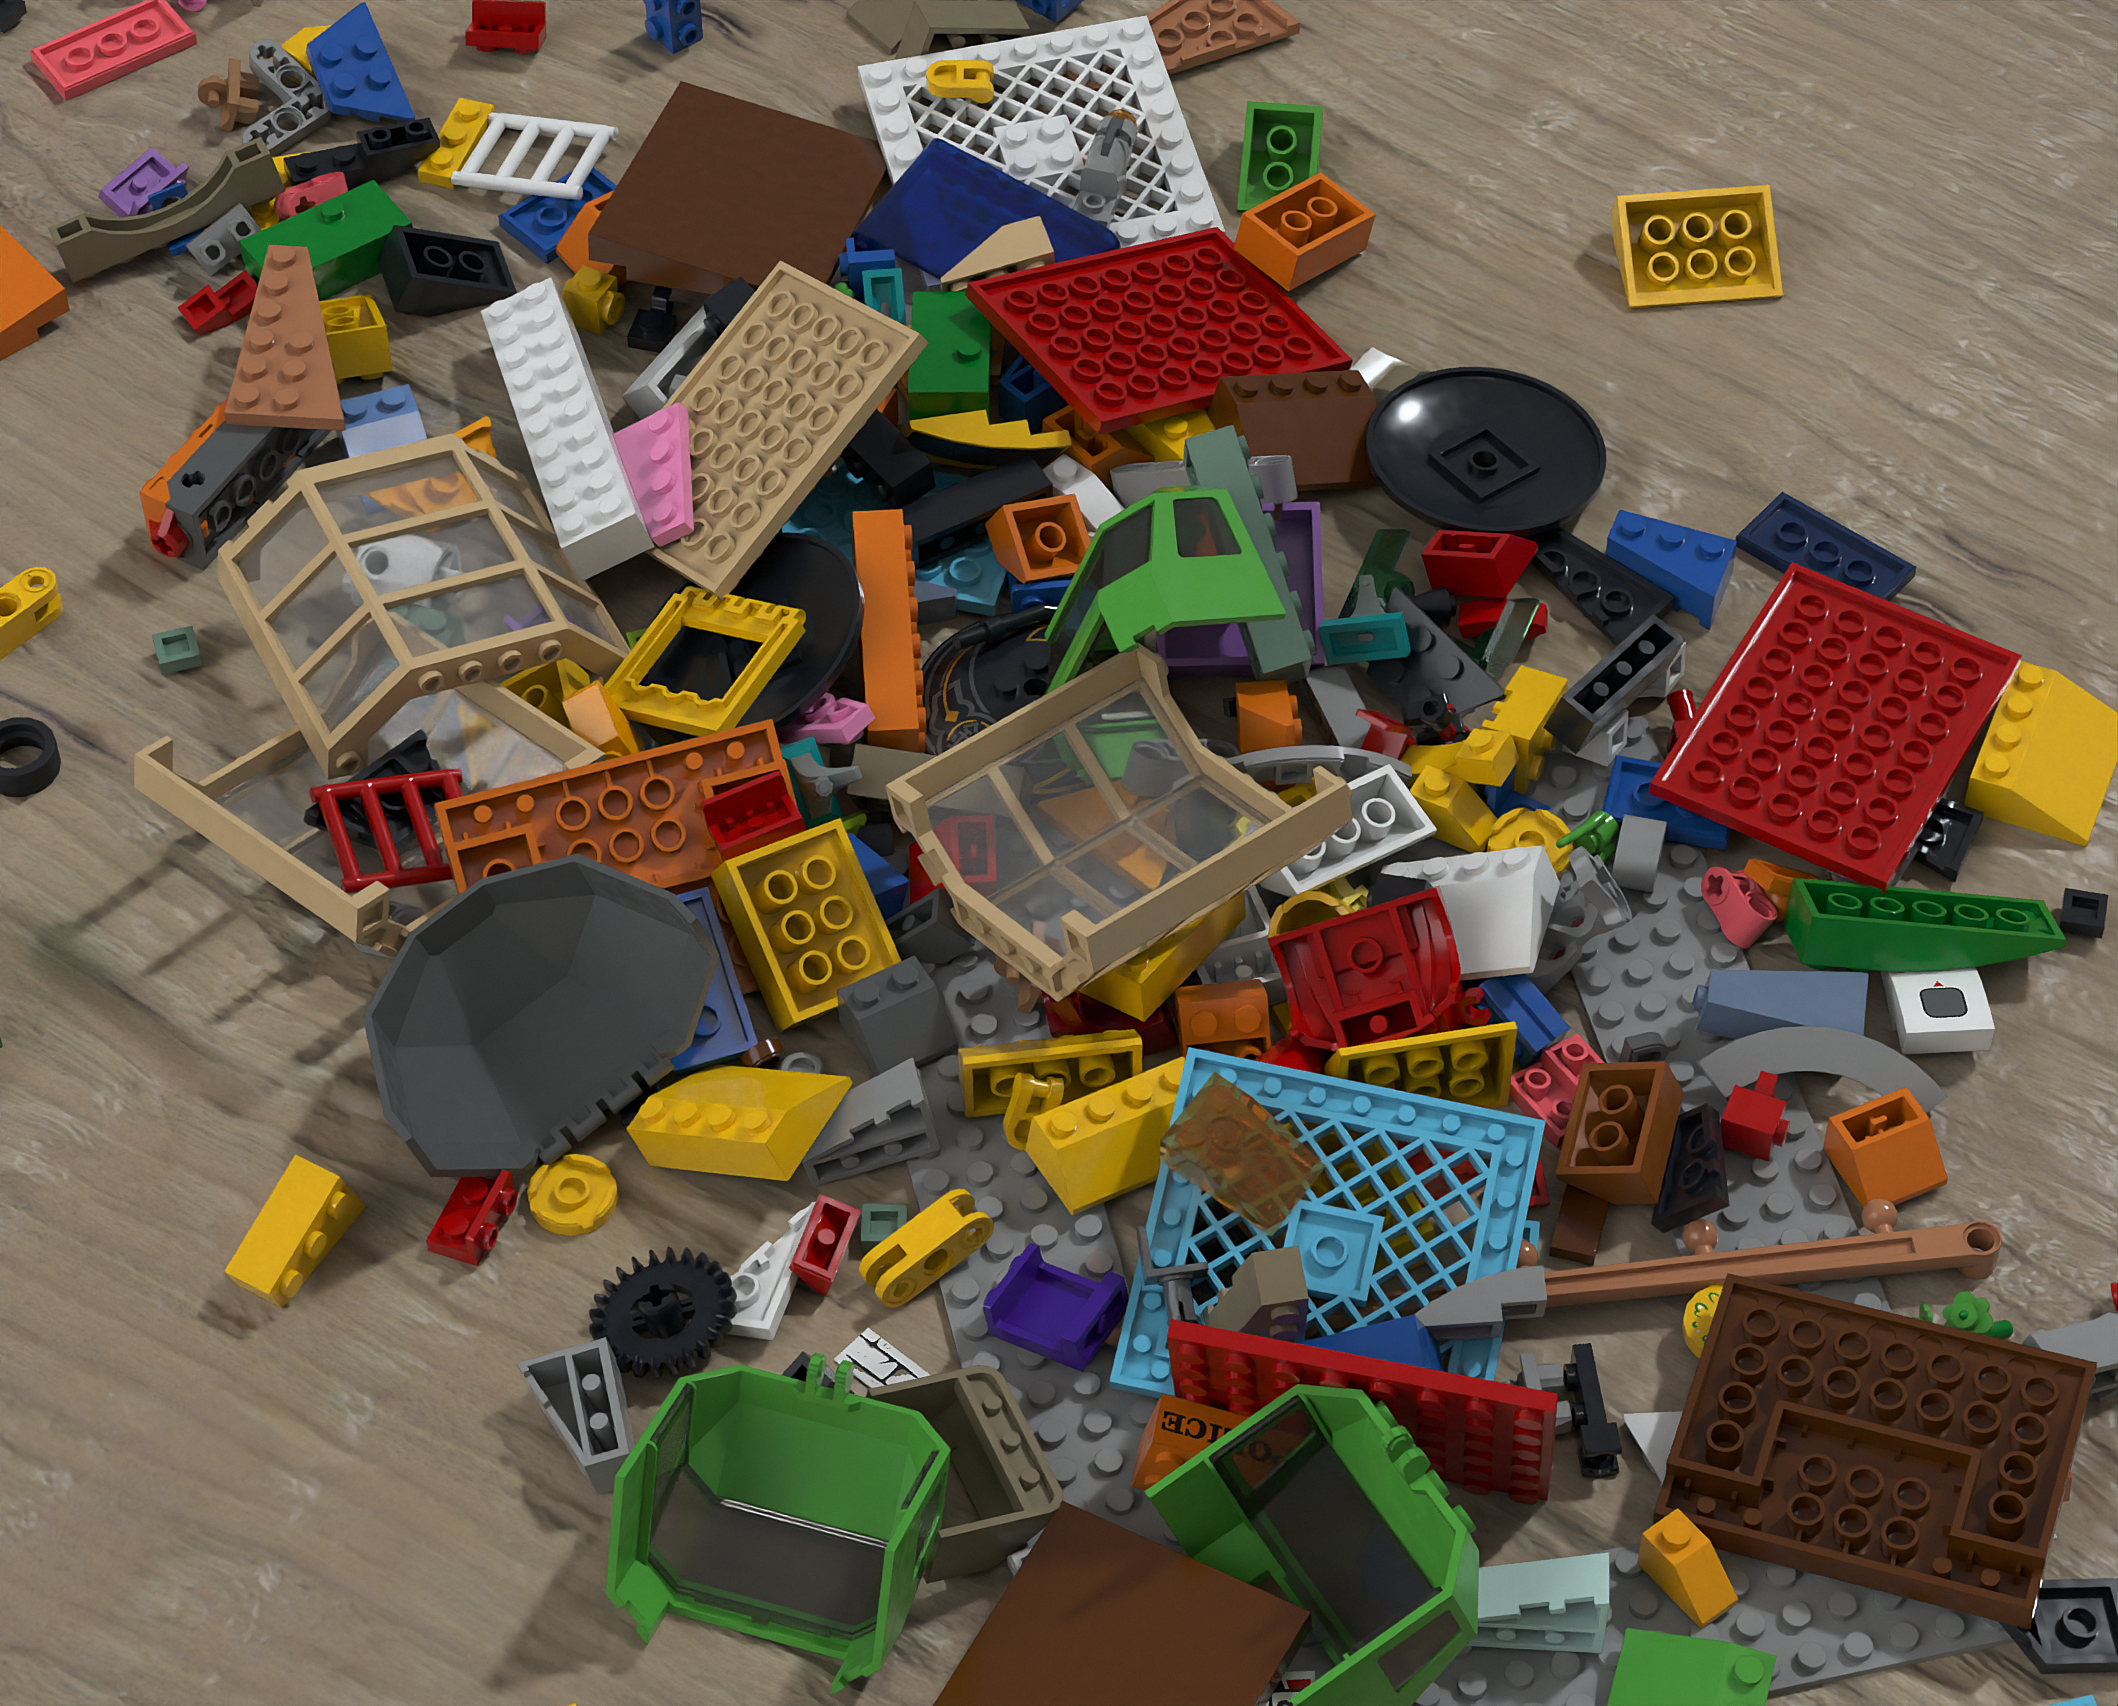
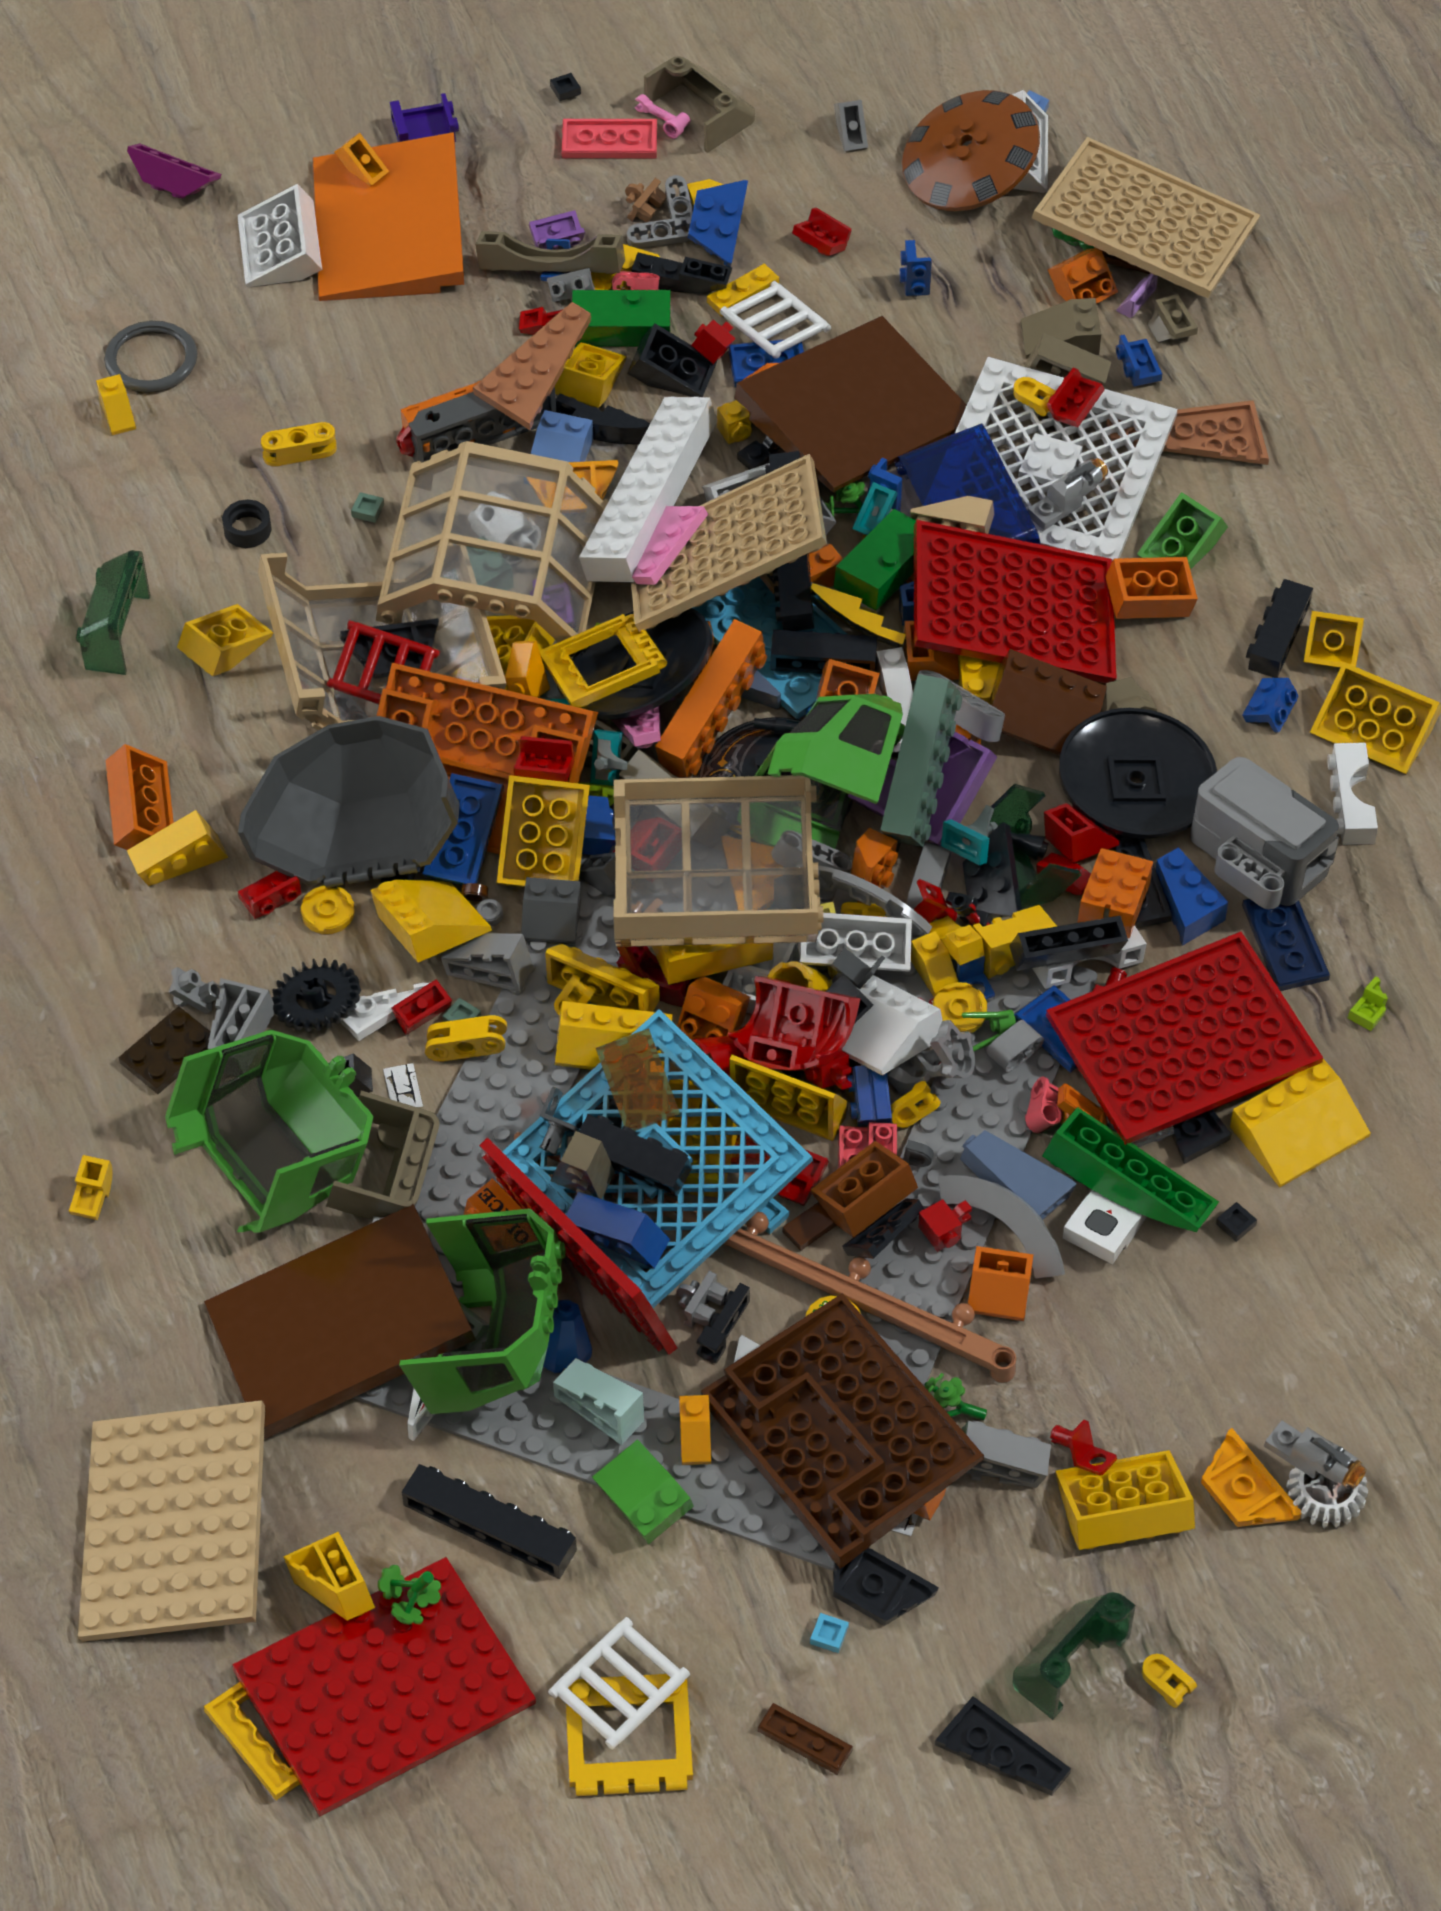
camera: 35 degrees right, 5 degrees up
(115, 923) = (222, 638): none -> yellow slope
(171, 1196) = (137, 795): none -> orange slope
(433, 380) = (608, 425): none -> black slope
(480, 215) = (713, 340): none -> red brick
(484, 1405) = (191, 990): none -> light grey hips
(507, 1510) = (161, 1051): none -> dark brown plate
(1019, 59) = (1074, 398): none -> red bracket
(1054, 1309) = (498, 1105): dark purple panel -> none
(1331, 1250) = (640, 1157): none -> black brick
(1366, 863) = (854, 968): none -> dark grey bracket
(1482, 1305) = (700, 1232): light grey slope -> none
(1490, 205) = (1279, 629): none -> black brick
(1557, 293) = (1271, 702): none -> blue bracket
(1567, 183) = (1333, 639): none -> yellow slope
(1583, 994) = (905, 1110): none -> yellow plate
(1590, 591) = (1116, 884): none -> orange piece
(1707, 437) = (1263, 834): none -> light grey piece
(1779, 373) = (1356, 819): none -> white arch
(1992, 577) = (1370, 1006): none -> lime slope

